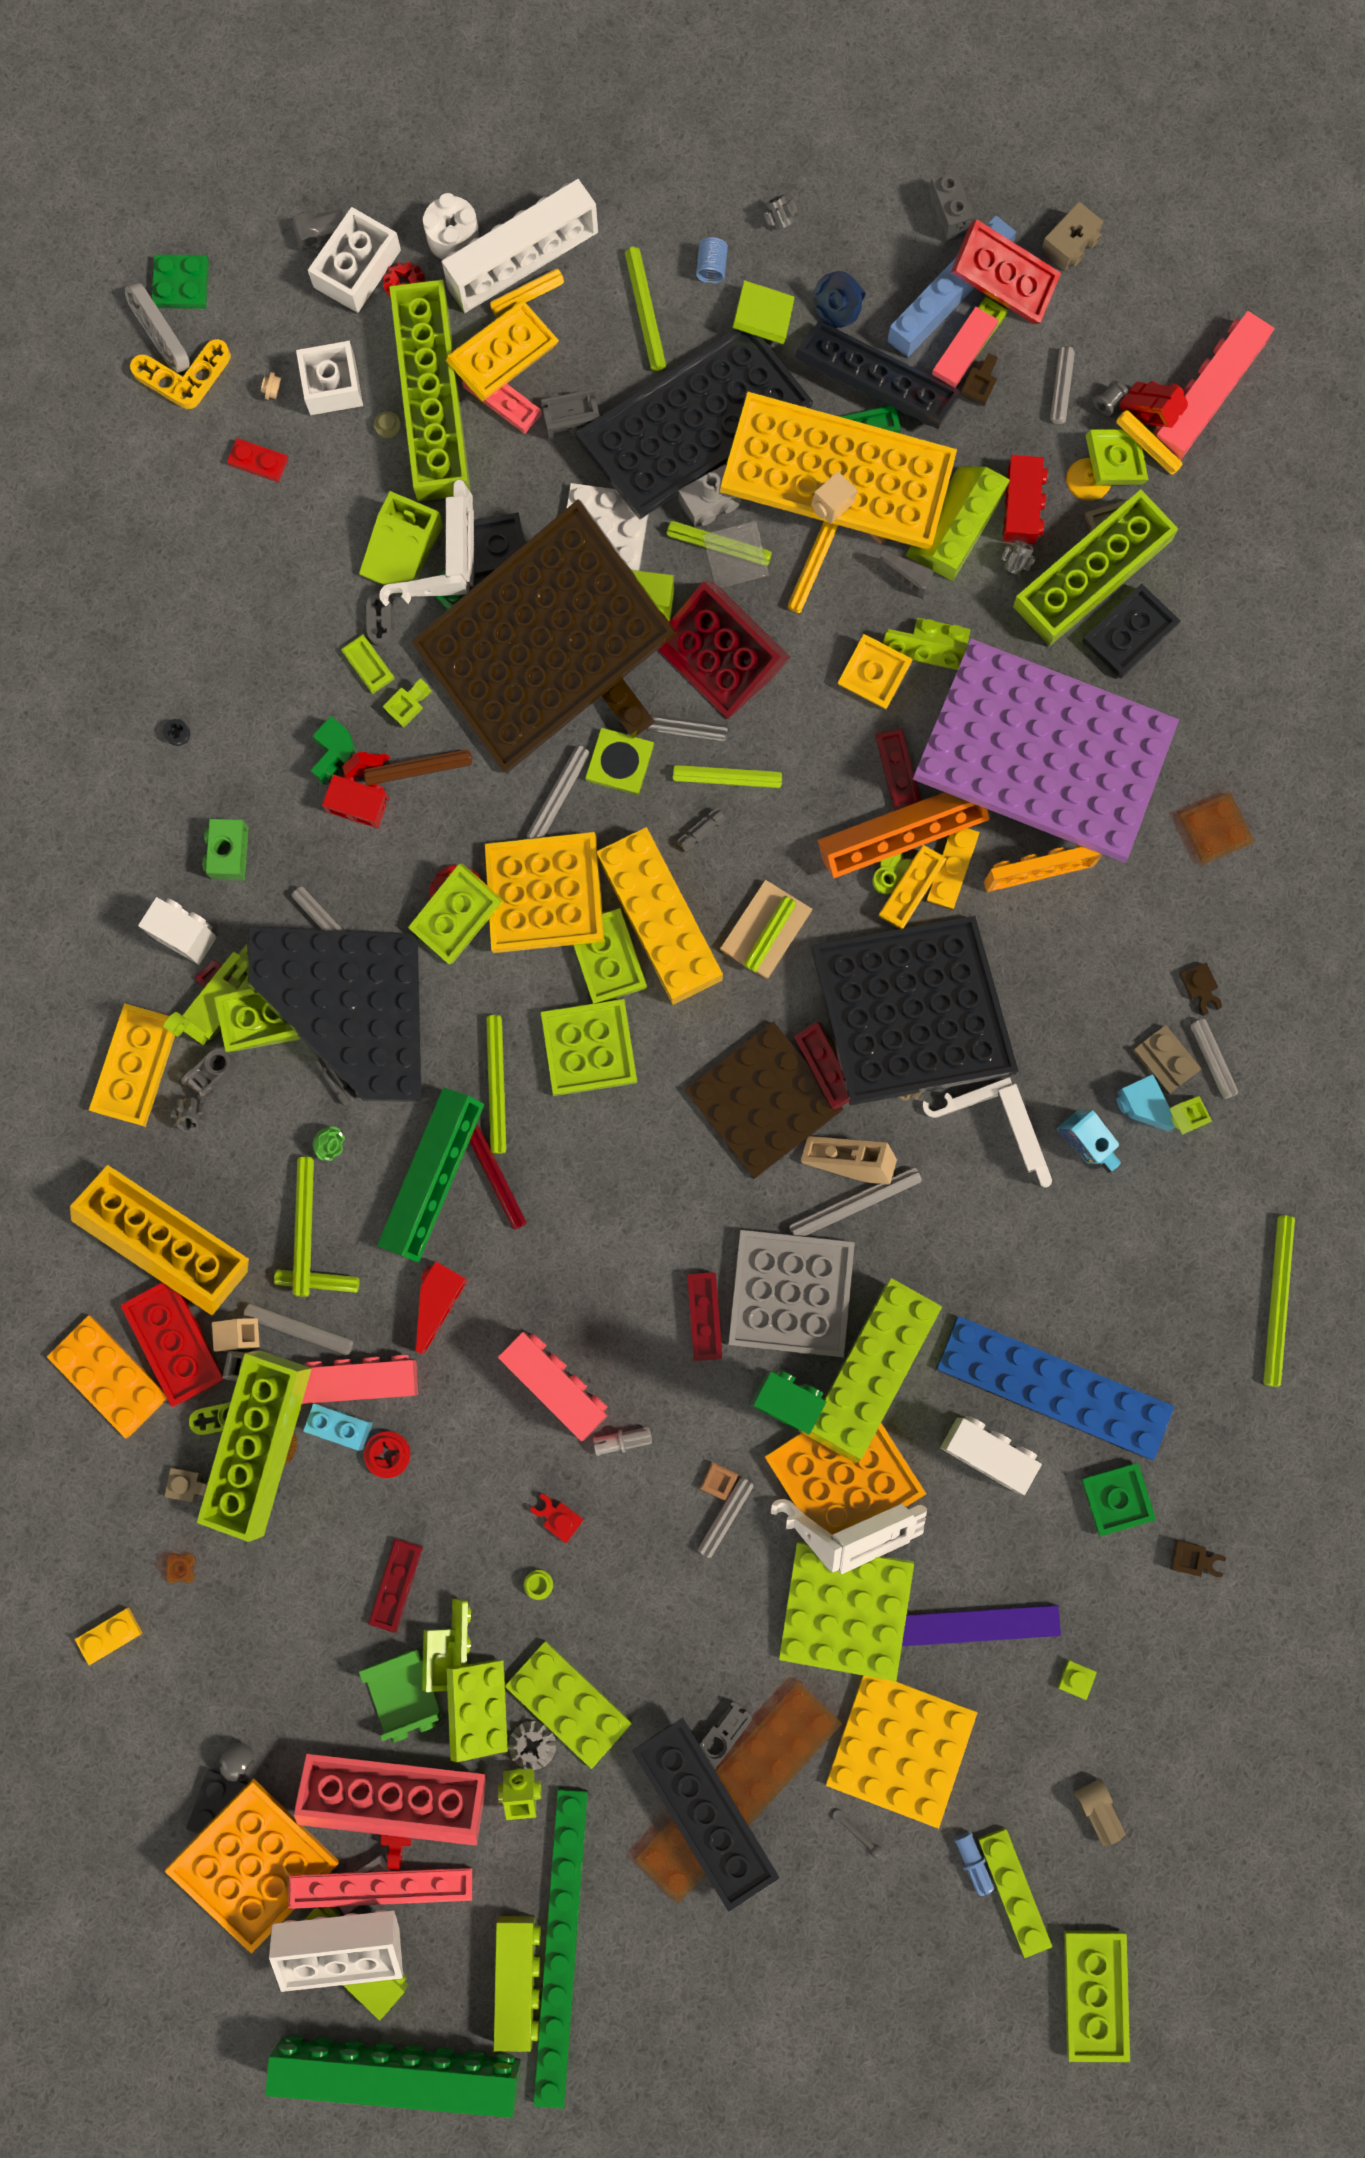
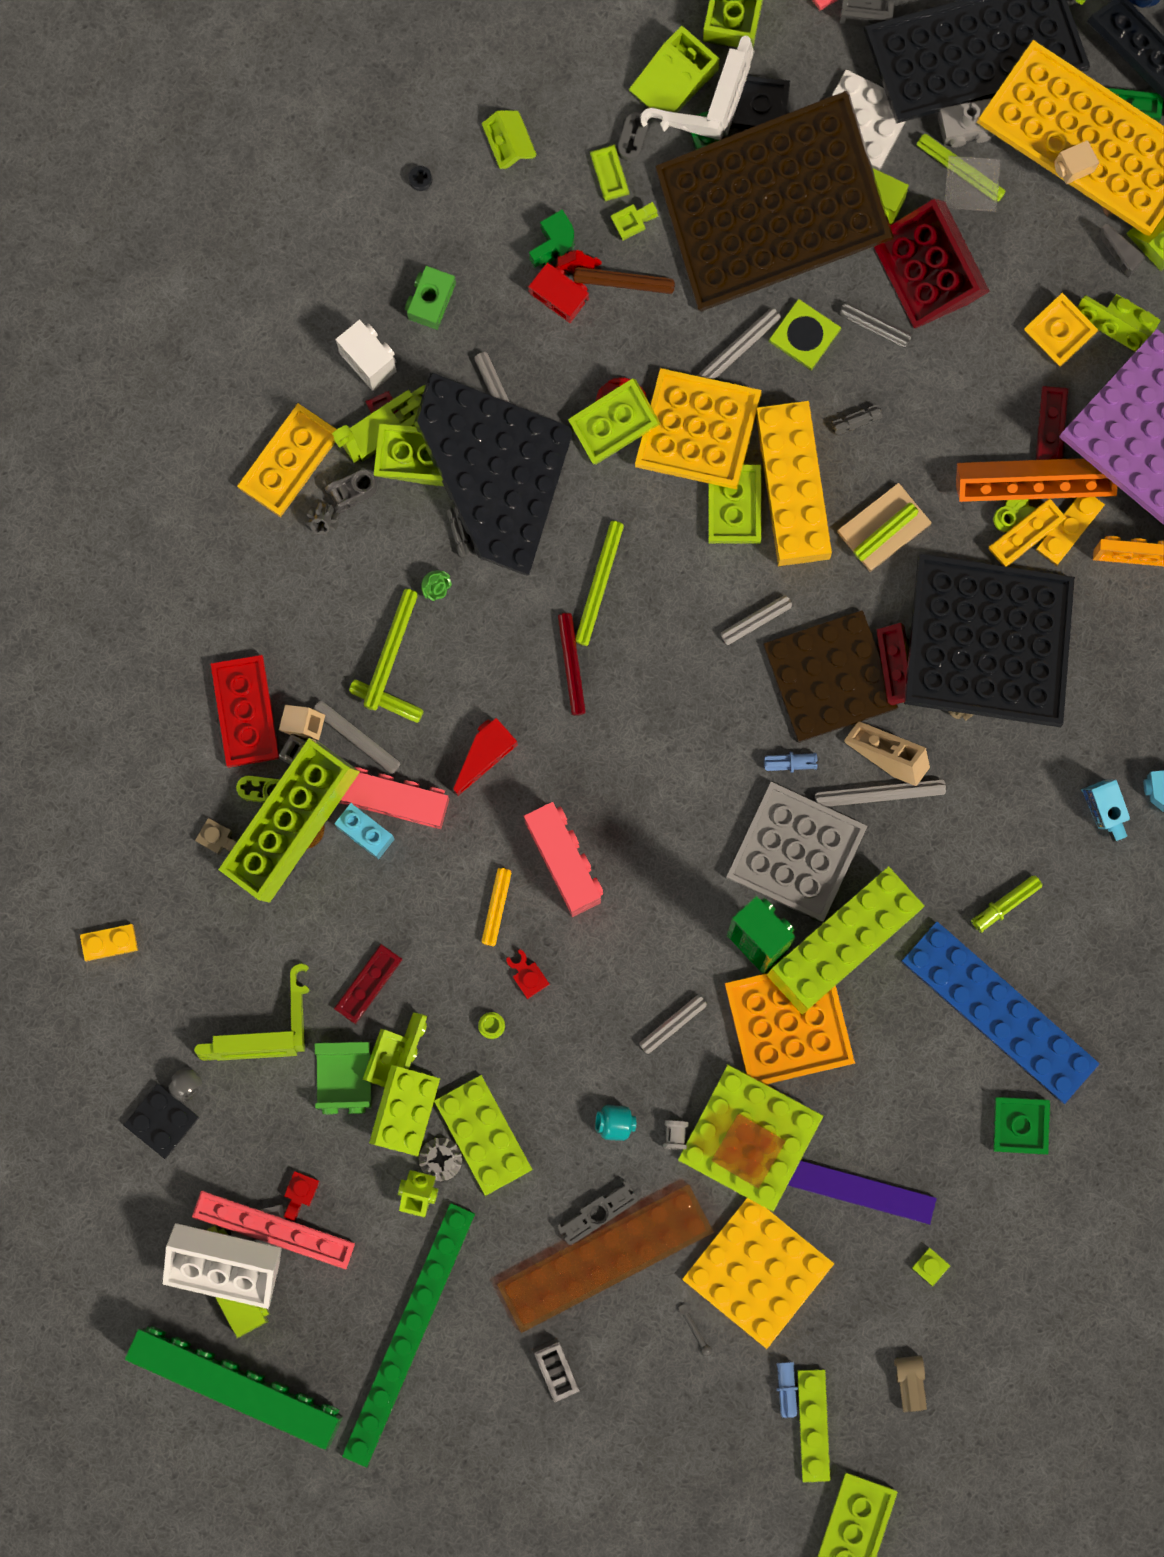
camera: 20 degrees right, 0 degrees up
(108, 1376) = (179, 722): light orange plate -> none
(159, 1239) = (263, 618): yellow brick -> none
(173, 1573) = (184, 900): clear orange plate -> none
(244, 1864) = (166, 1169): light orange plate -> none
(253, 662) = (508, 138): none -> lime panel
(310, 1688) = (263, 1044): none -> lime hinge
(376, 1446) = (389, 861): red gear -> none
(390, 1799) = (307, 1158): coral brick -> none
(431, 1174) = (516, 641): green brick -> none
(502, 1457) = (496, 906): none -> yellow axle
(515, 1983) = (360, 1349): lime brick -> none
(588, 1047) = (691, 578): lime plate -> none
(622, 1441) = (605, 928): light grey axle -> none
(628, 708) = (828, 290): dark brown plate -> none
(669, 1067) = (756, 619): none -> light grey axle
(701, 1643) = (615, 1122): none -> teal head
(704, 1316) = (713, 846): dark red plate -> none
(705, 1814) = (571, 1263): black plate -> none
(706, 1919) = (544, 1349): none -> flat silver slope
(719, 1481) = (677, 992): medium nougat tile -> none
(727, 776) = (896, 379): lime axle -> none
(753, 1202) = (790, 762): none -> medium blue axle
(767, 1634) = (675, 1135): none -> light grey bush
(812, 567) = (1038, 215): yellow axle -> none
(850, 1628) = (748, 1150): none -> clear orange plate
(859, 1542) = (783, 1080): white hinge -> none
(991, 1454) = (923, 1047): white brick -> none
(1017, 1118) = (1049, 765): white hinge -> none
(1022, 1273) = (997, 910): none -> lime axle
(1193, 1559) = (1067, 1199): dark brown plate -> none

